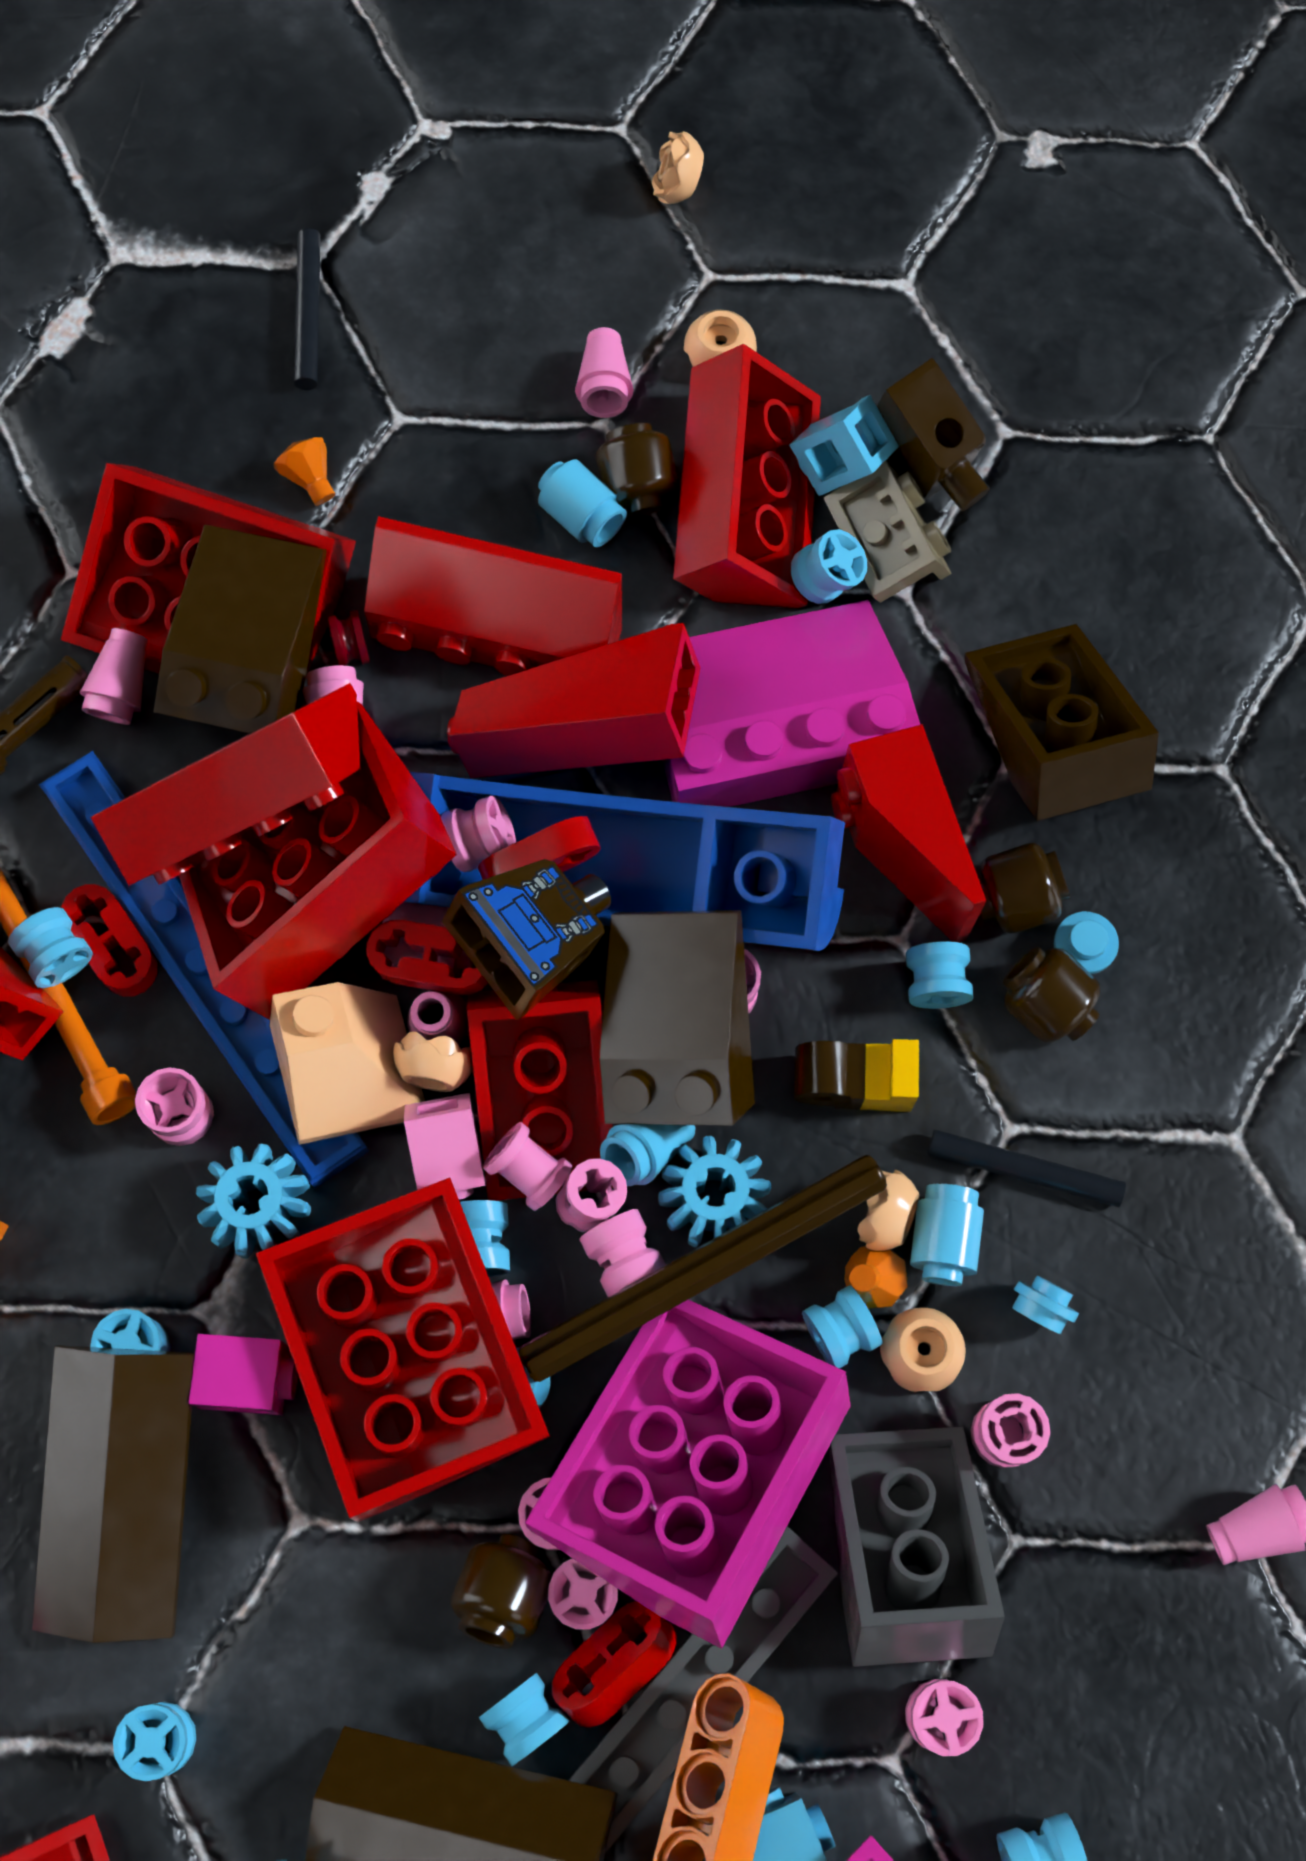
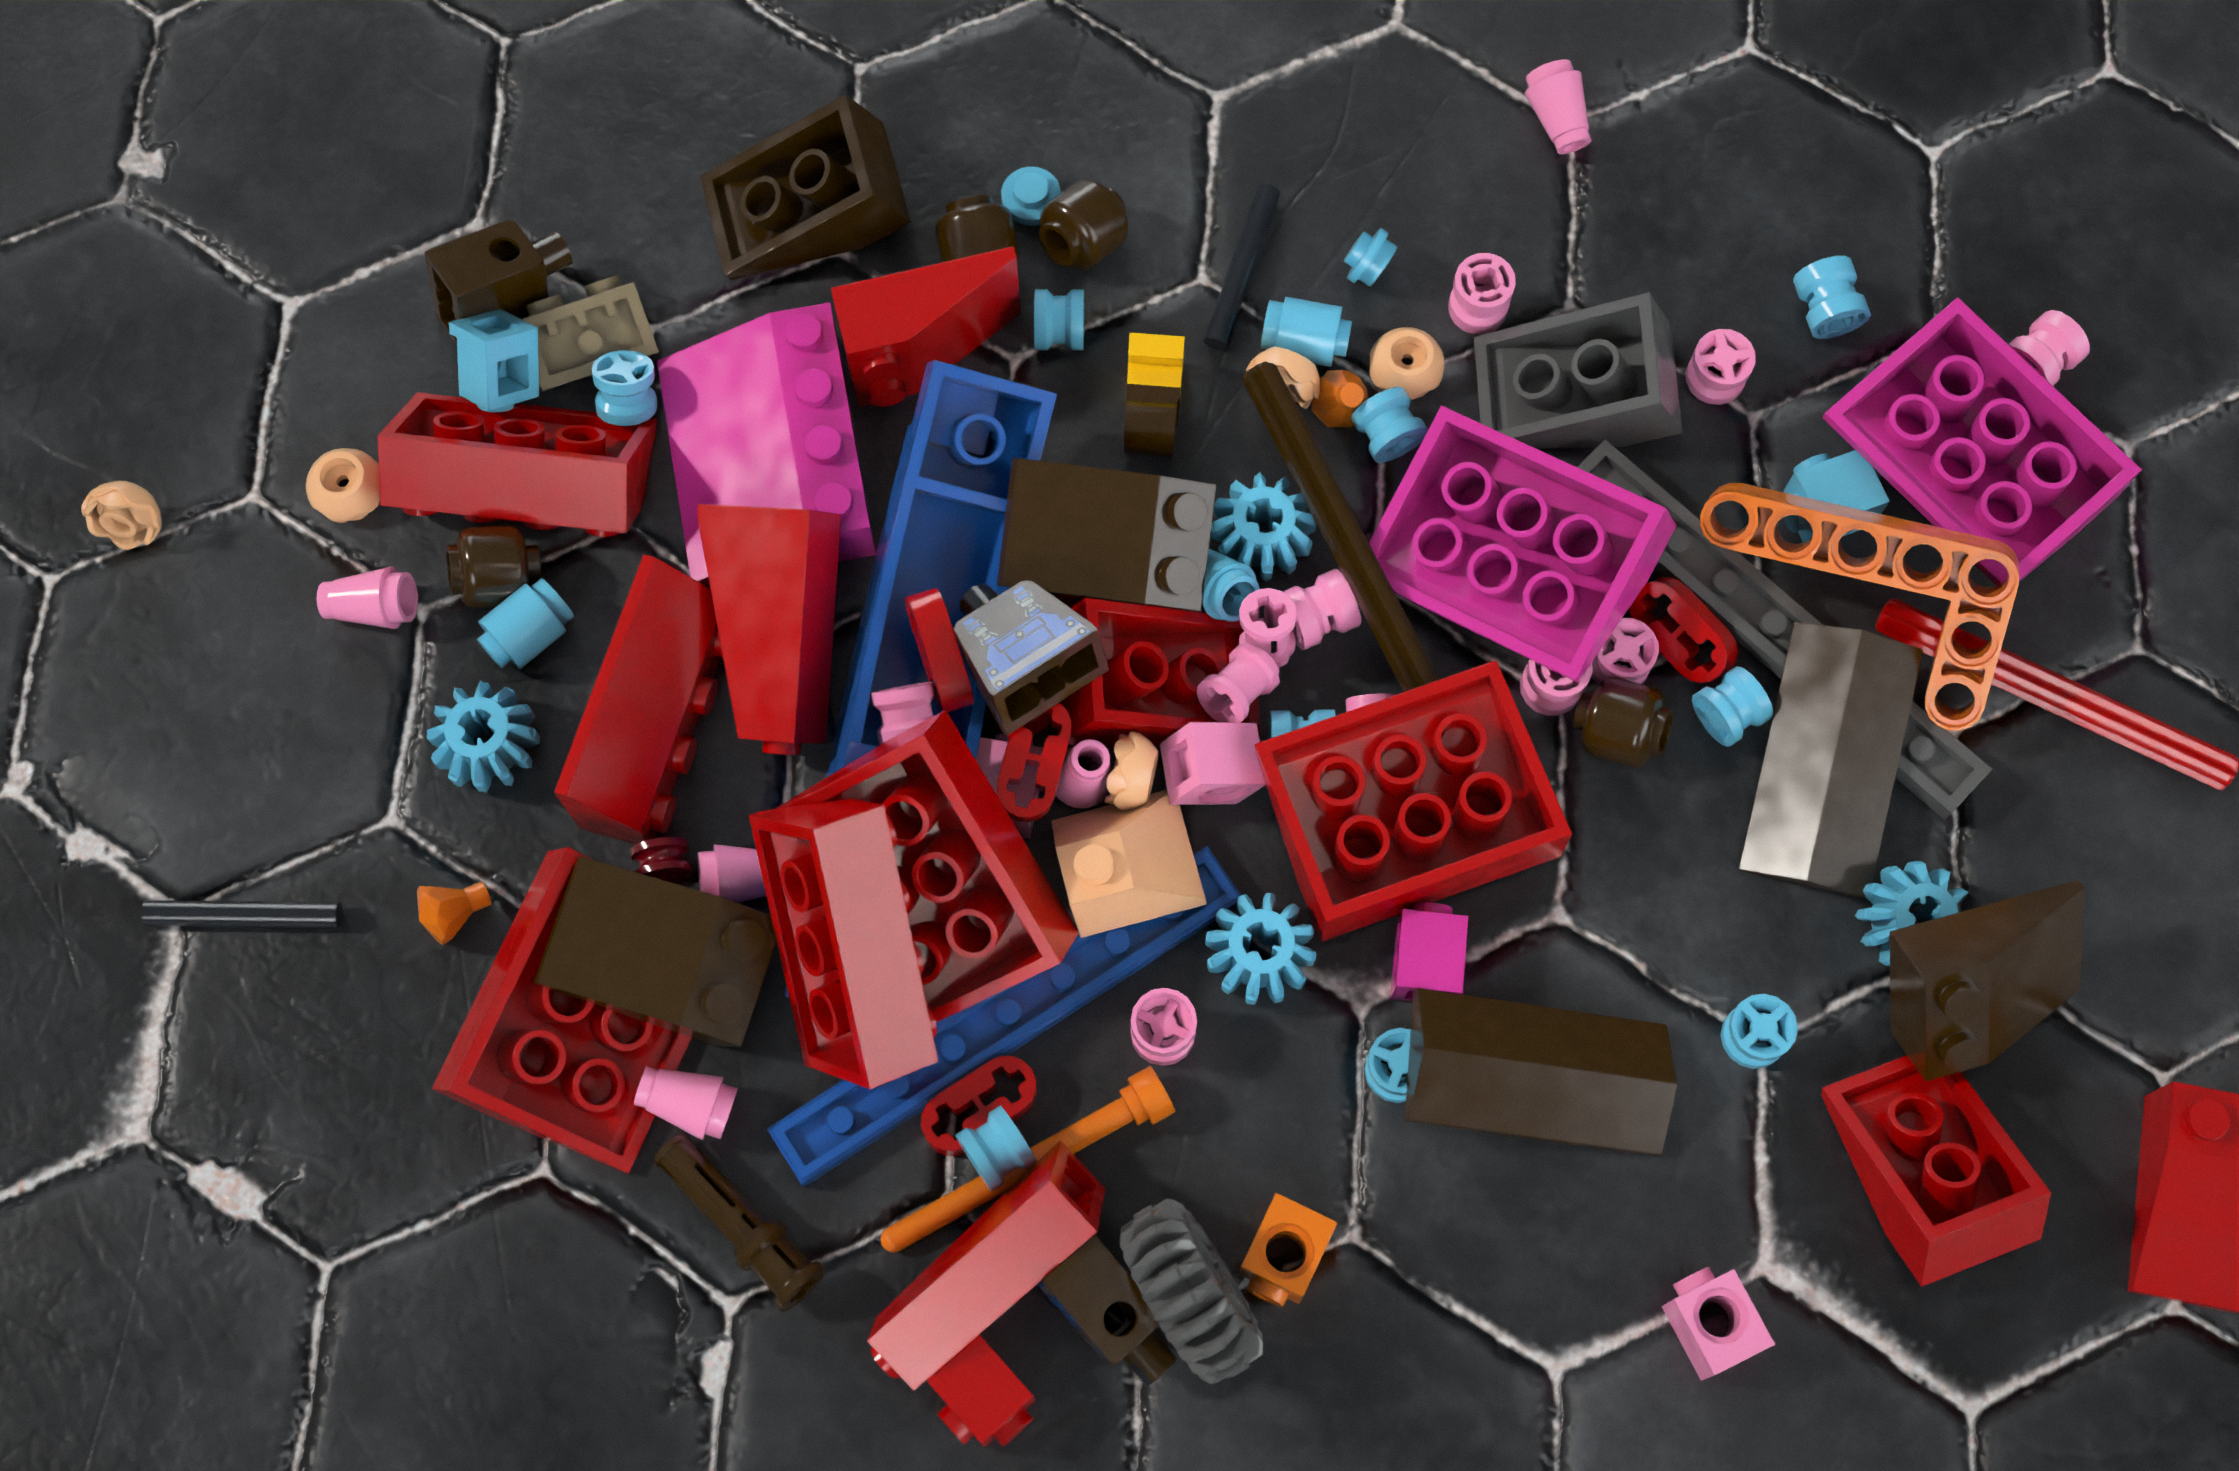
camera: 85 degrees left, 0 degrees up
(468, 478) = (478, 714): none -> medium azure gear

